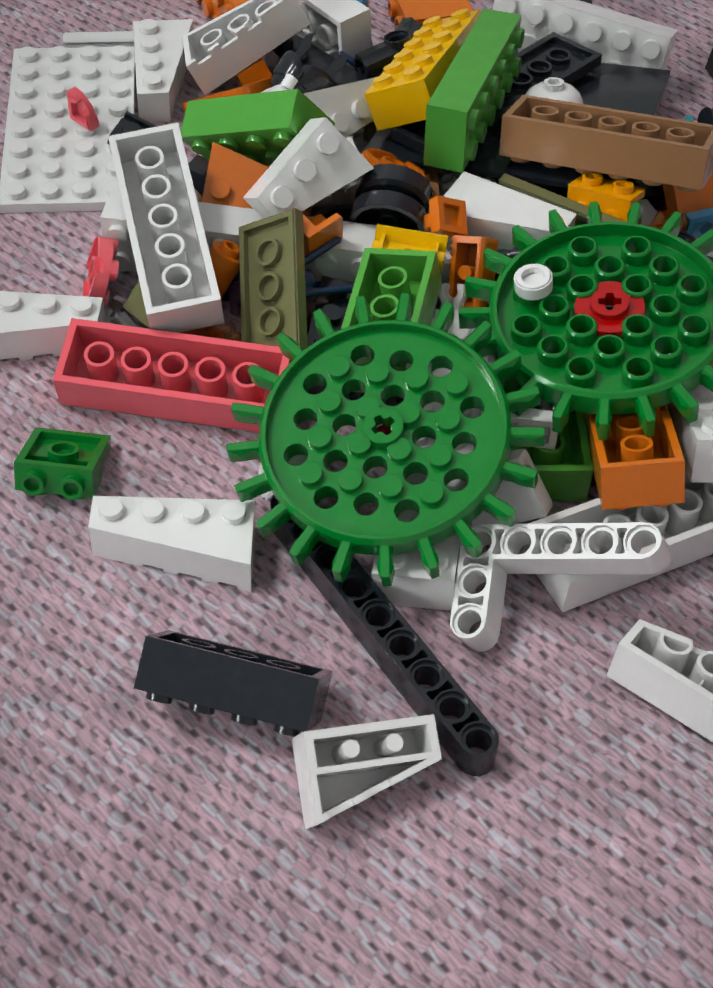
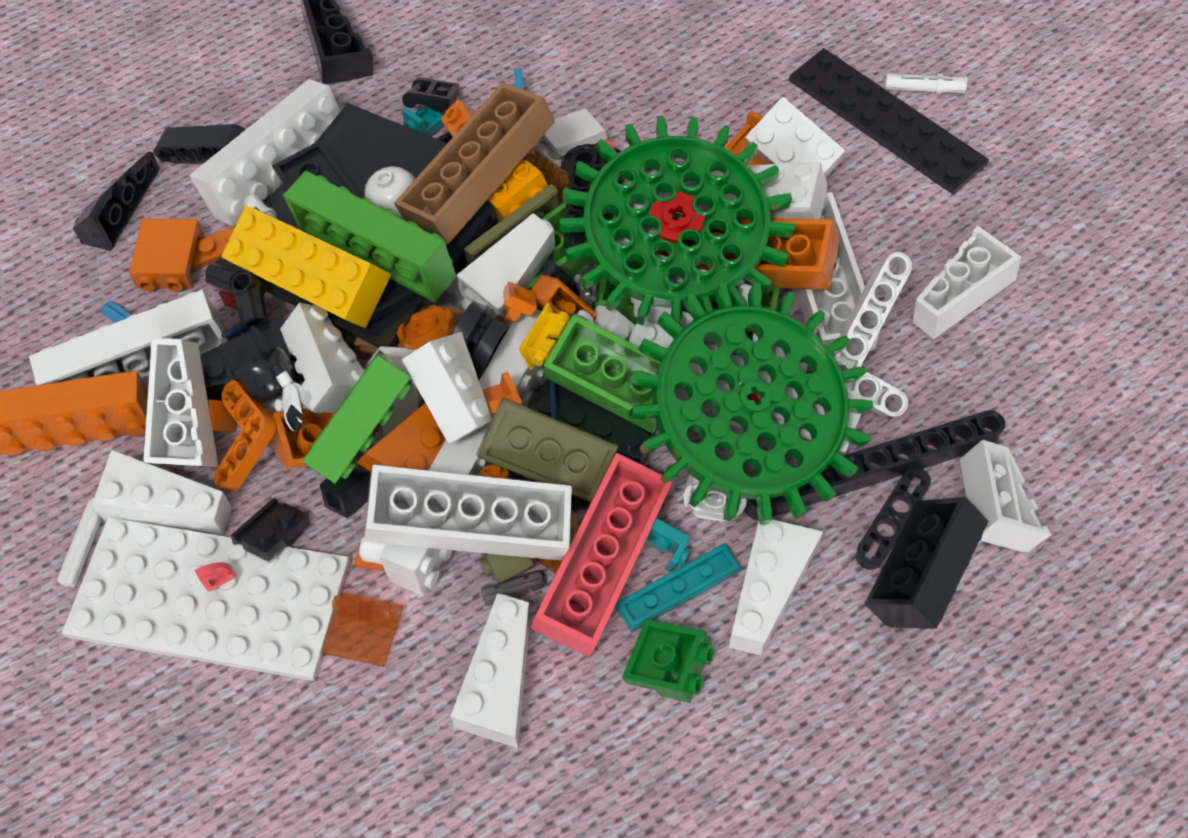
camera: 70 degrees left, 10 degrees up
(58, 228) = (362, 629): none -> clear orange hinge
(101, 268) = (444, 582): coral plate -> none
(158, 460) = (678, 587): none -> teal tile
(210, 439) = (667, 538): none -> teal bracket
(316, 652) = (893, 518): none -> black beam
(533, 281) = (640, 255): white tile -> none

